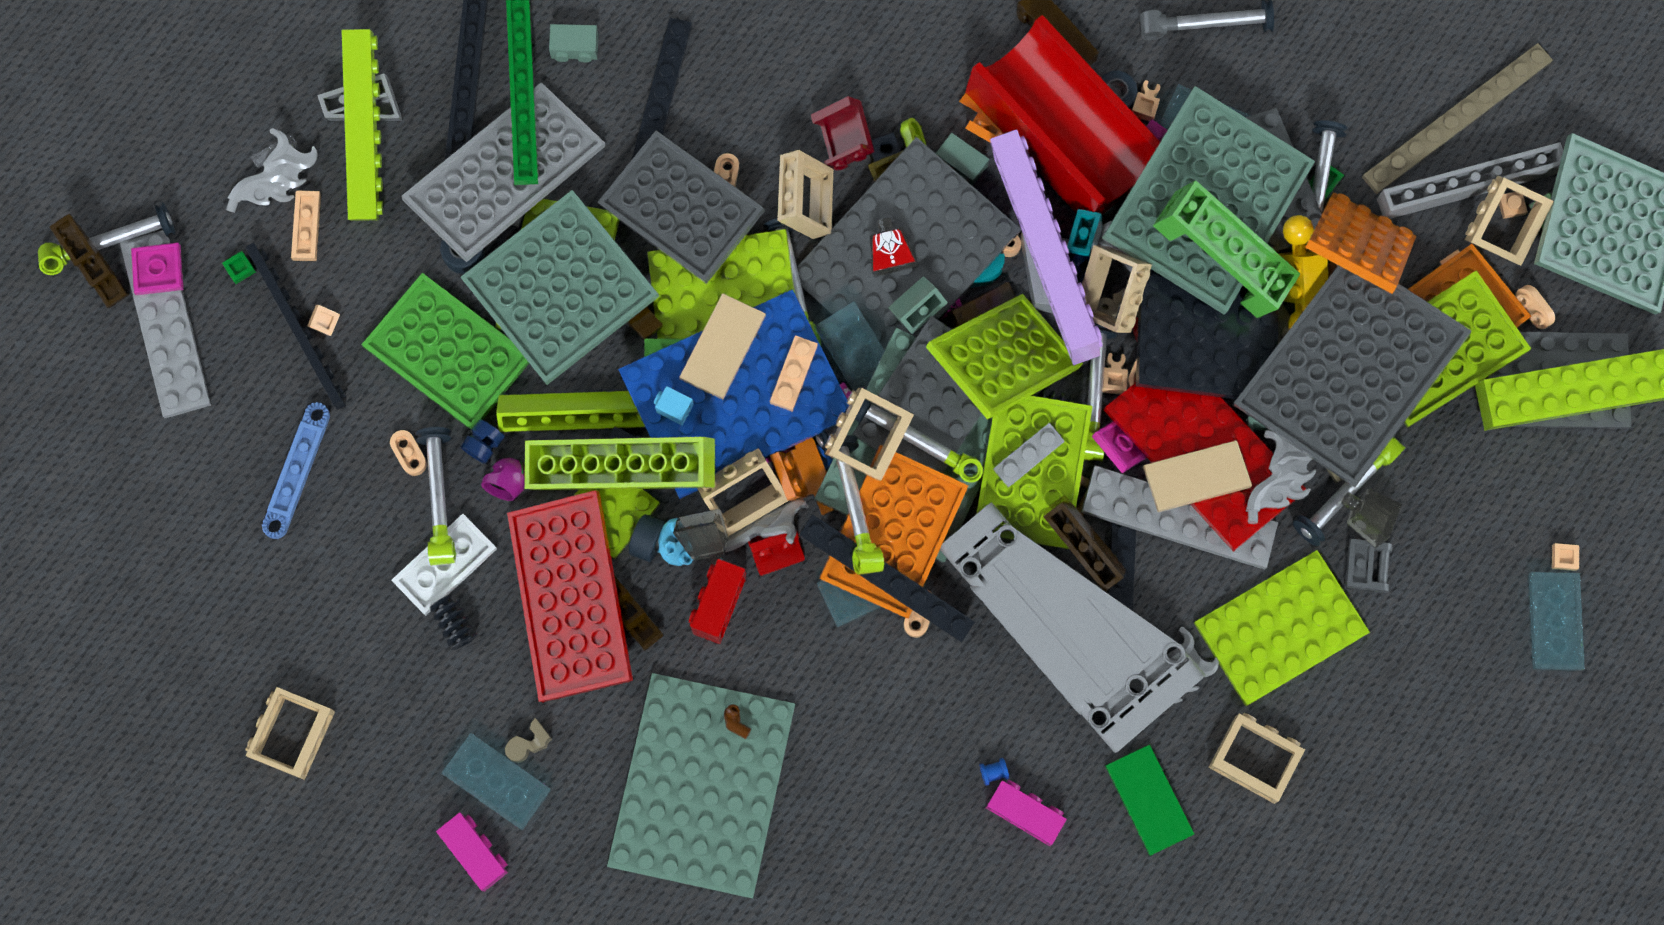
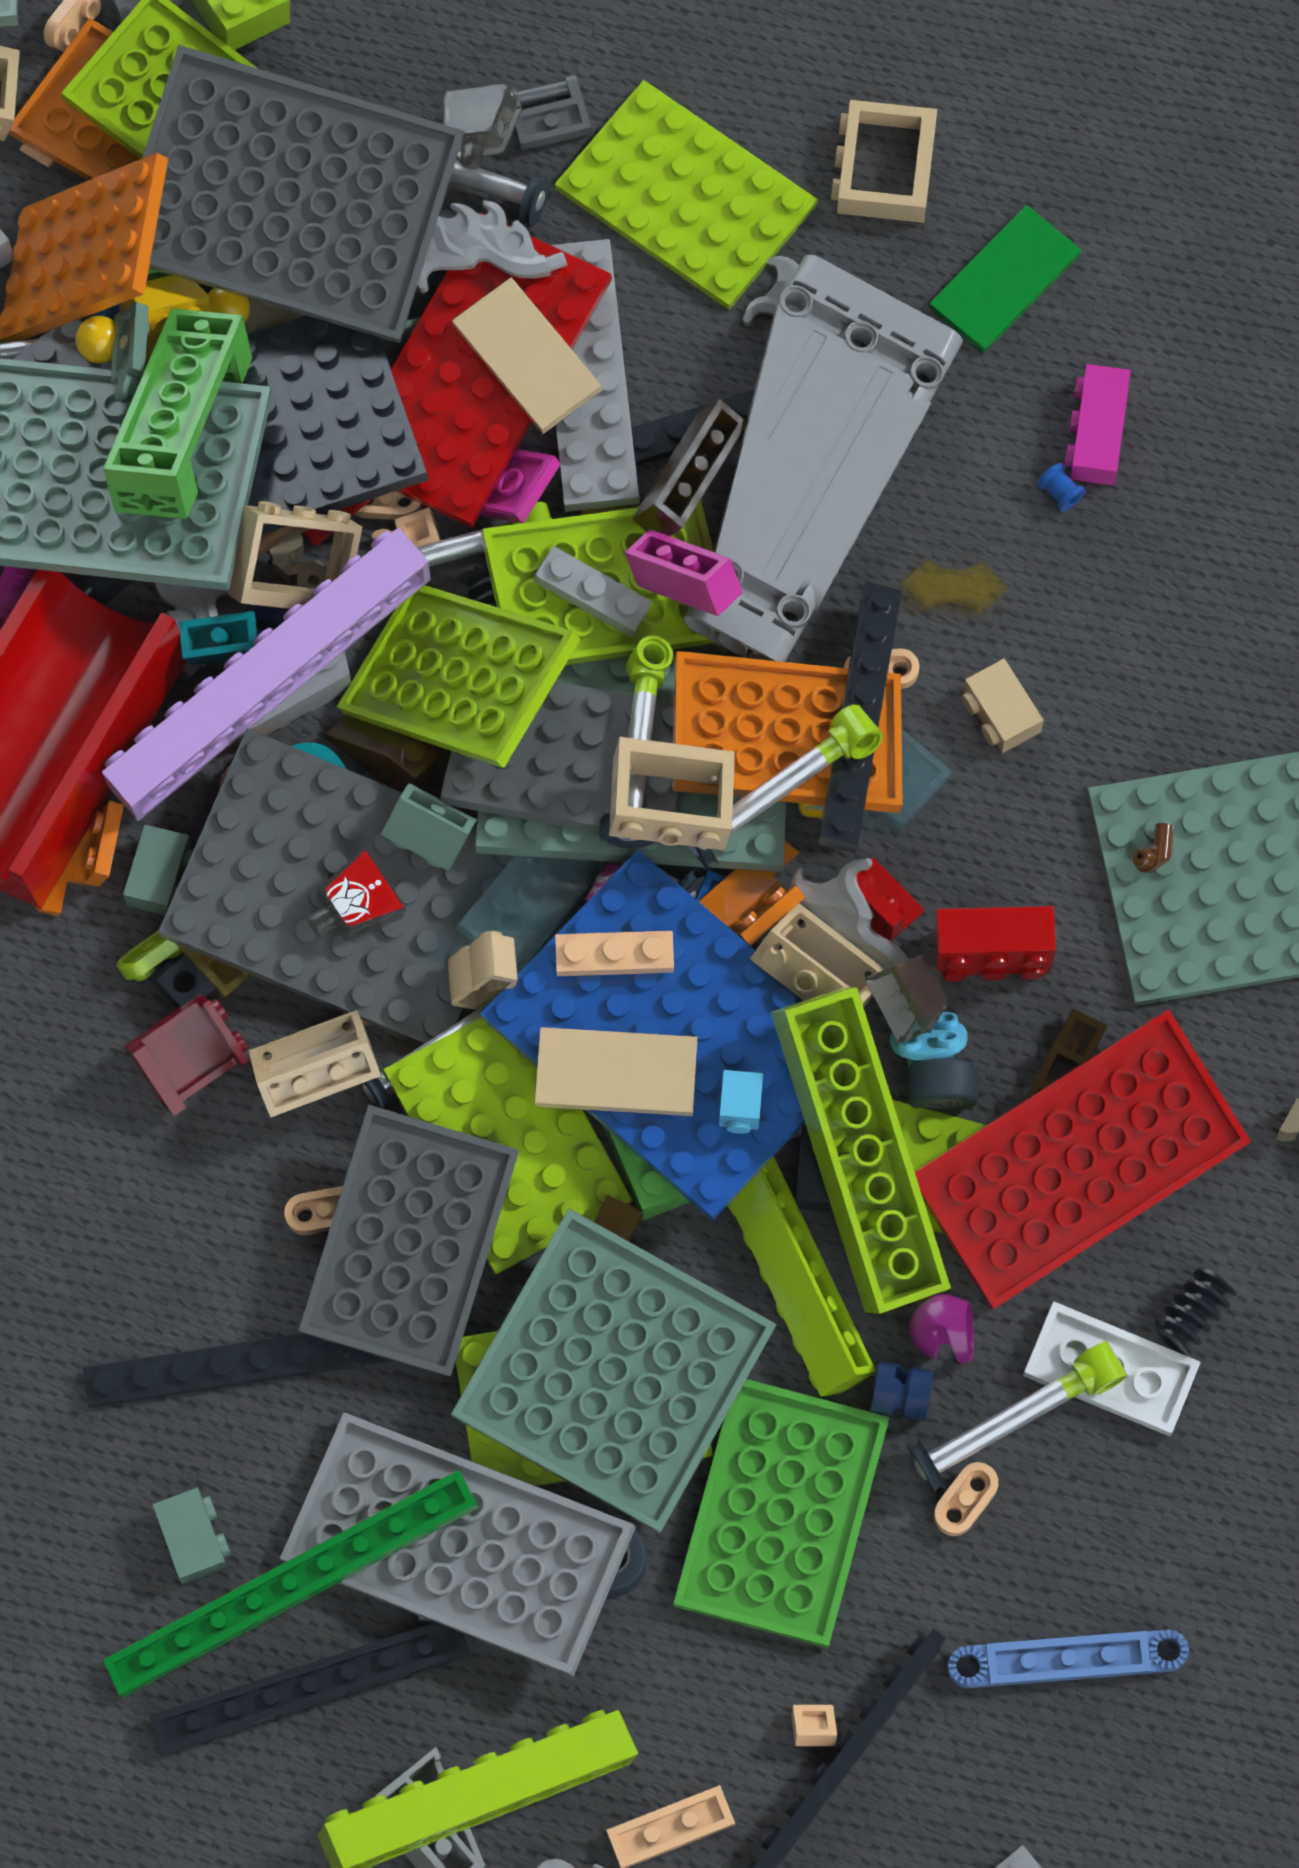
camera: 110 degrees left, 5 degrees down
(820, 302) = (482, 970): none -> tan brick
(866, 673) = (1002, 706): none -> tan brick
(961, 670) = (972, 587): none -> clear yellow tile
(1013, 505) = (684, 572): none -> dark pink brick
(1278, 238) = (129, 349): none -> sand green plate

